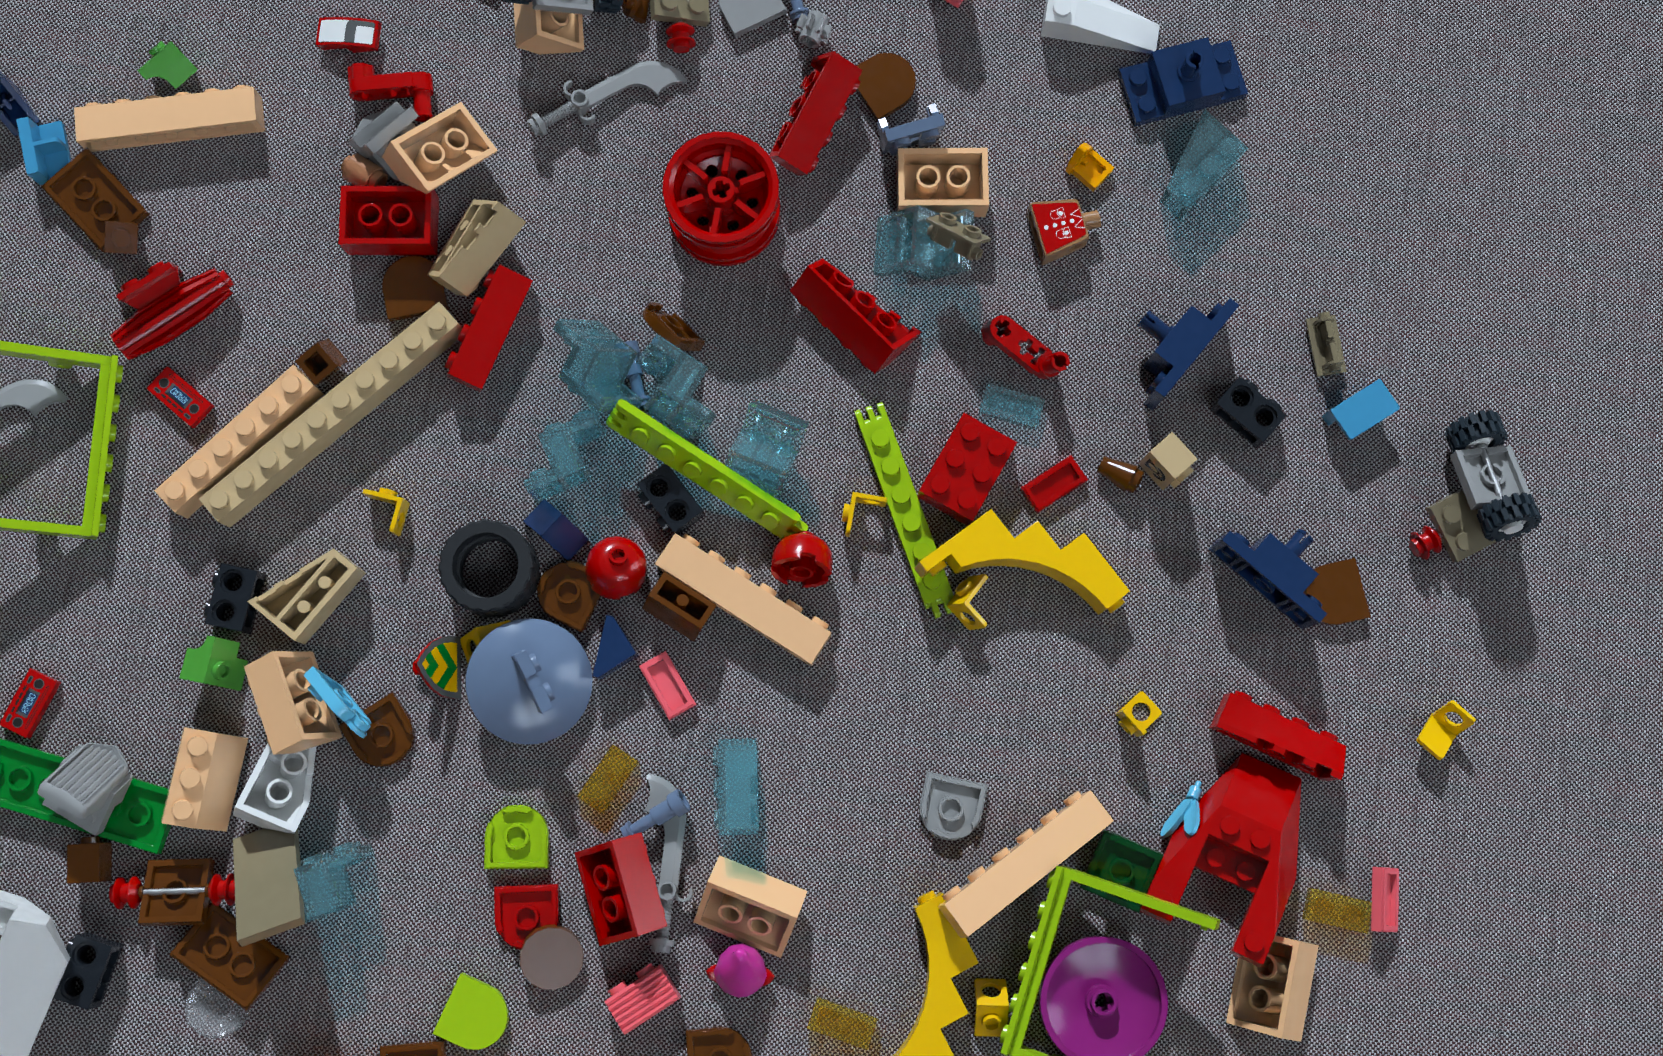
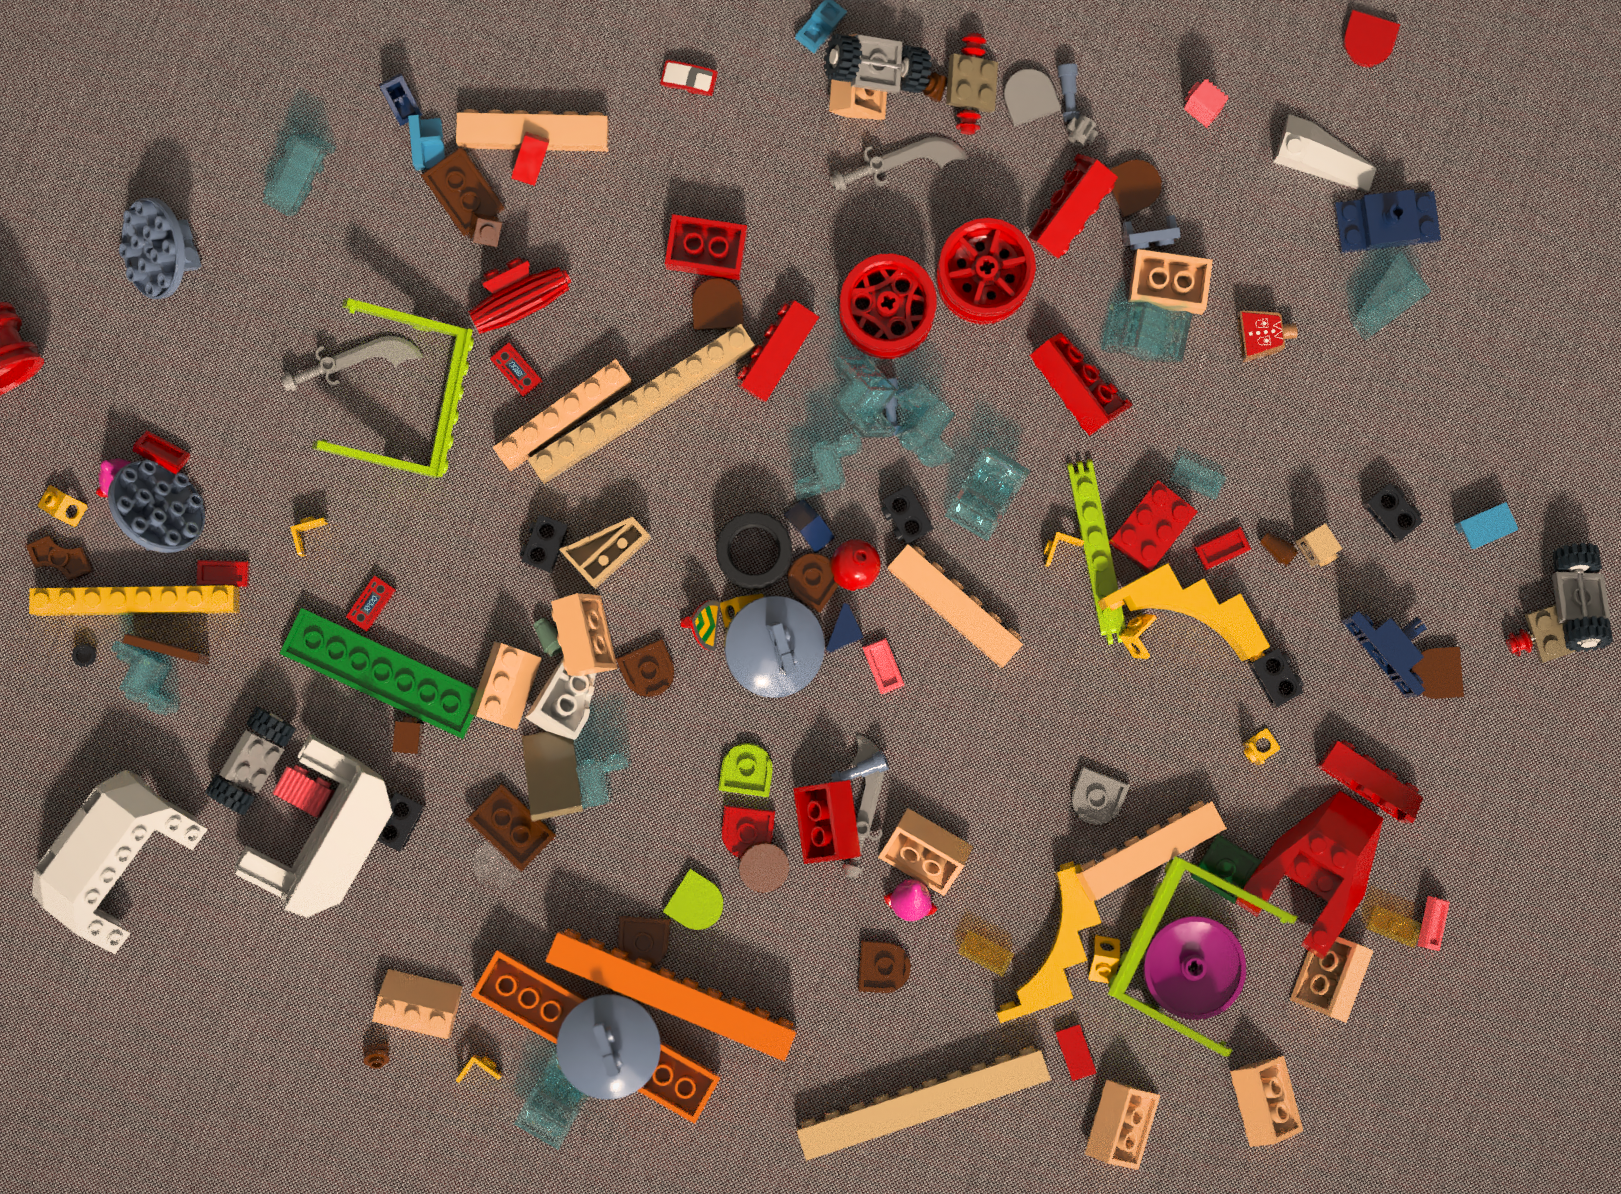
camera: 10 degrees right, 5 degrees up
(88, 785) = (417, 677): light grey piece -> none
(167, 148) = (530, 158): none -> tile
(168, 64) = (536, 83): bright green brick -> none
(174, 892) = (475, 771): reddish brown plate -> none
(215, 664) = (524, 595): bright green brick -> none
(247, 709) = (548, 637): none -> sand green cone
(321, 361) = (637, 358): reddish brown brick -> none
(338, 700) = (620, 638): medium azure plate -> none
(362, 171) = (688, 202): nougat brick -> none
(369, 87) = (698, 126): red beam -> none
(377, 131) = (714, 176): light grey piece -> none
(401, 509) = (679, 479): yellow bracket -> none
(438, 149) = (757, 196): light nougat slope -> none
(475, 246) = (775, 279): tan wedge -> none
(592, 227) = (880, 317): none -> red wheel
(608, 779) = (825, 734): clear yellow plate -> none
(642, 998) = (831, 909): coral brick -> none
(672, 328) = (928, 373): reddish brown tile -> none
(679, 606) = (902, 604): reddish brown brick -> none
(704, 470) = (940, 497): lime hinge -> none
(737, 787) = (929, 755): clear light blue wedge -> none
(802, 559) = (1008, 580): red cylinder -> none
(968, 238) = (1167, 326): dark tan hinge -> none
(1011, 334) = (1208, 419): red beam -> none
(1089, 167) = (1295, 284): light orange tile -> none
(1137, 632) = (1270, 681): none -> black brick
(1179, 345) = (1345, 450): dark blue brick -> none
(1187, 811) = (1286, 829): medium azure piece -> none
(1325, 345) = (1468, 465): dark tan hinge -> none
(1440, 731) = (1503, 797): yellow bracket -> none

